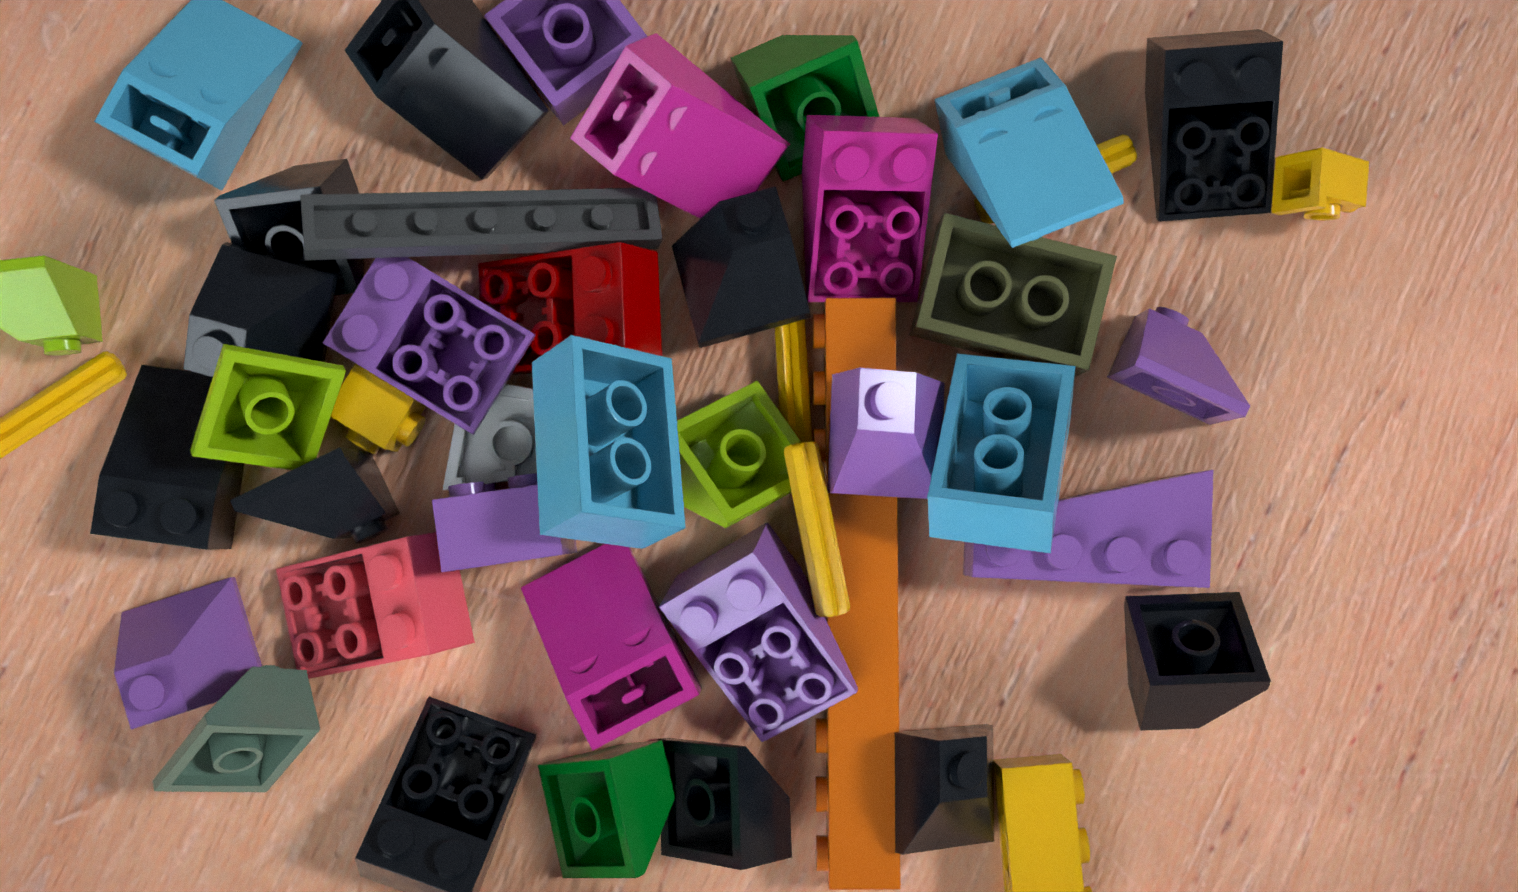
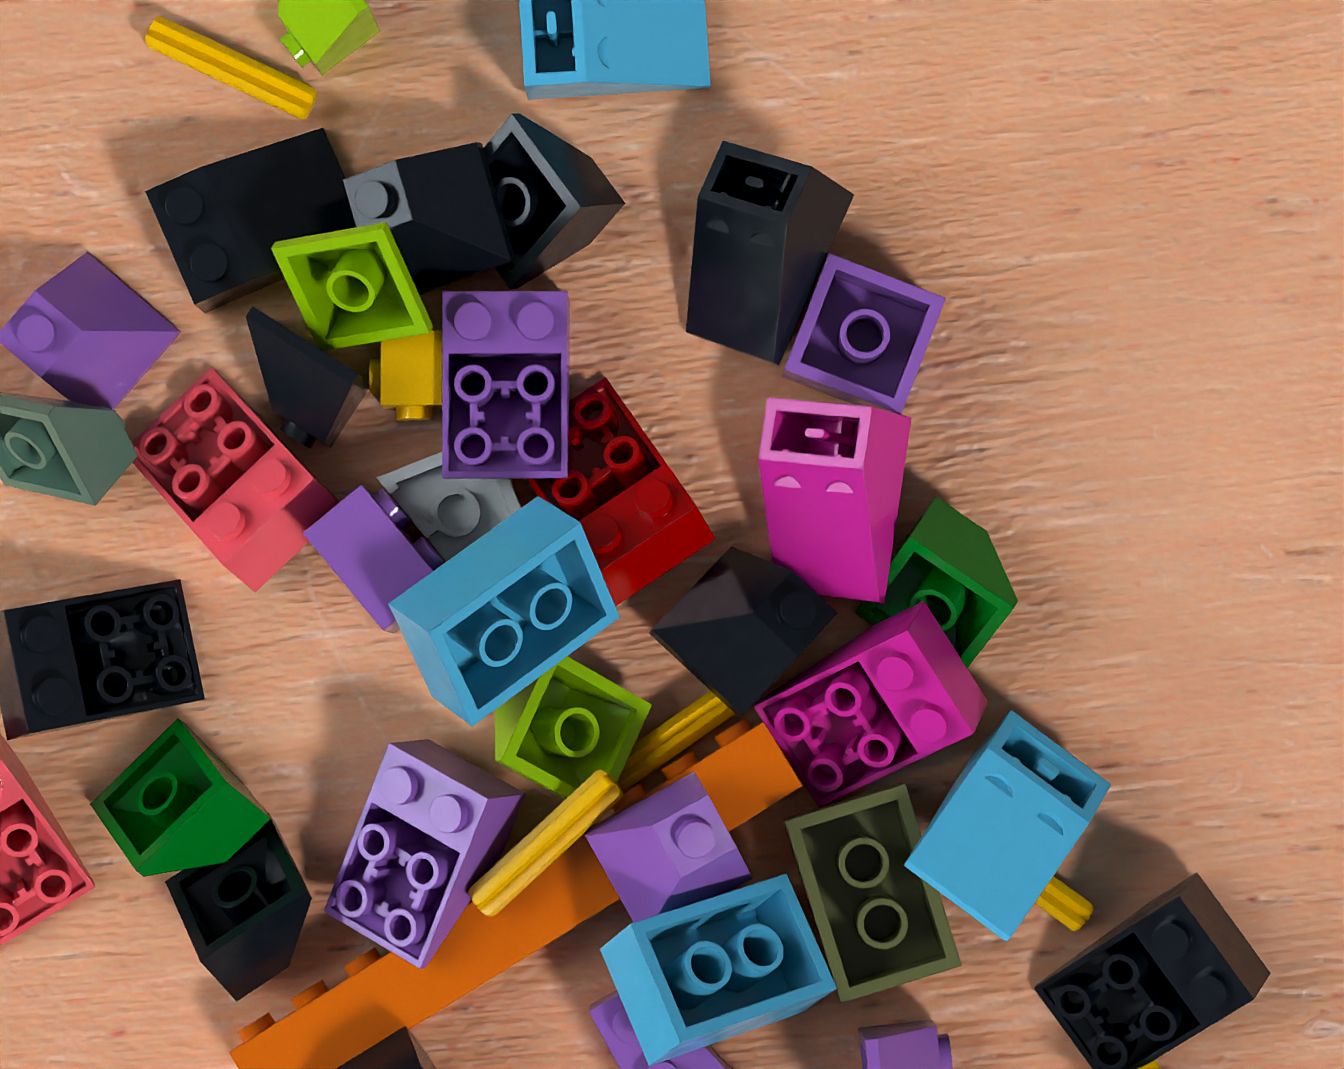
camera: 60 degrees right, 0 degrees up
(476, 222) = (639, 366): dark grey plate -> none
(609, 643) = (330, 716): dark pink slope -> none

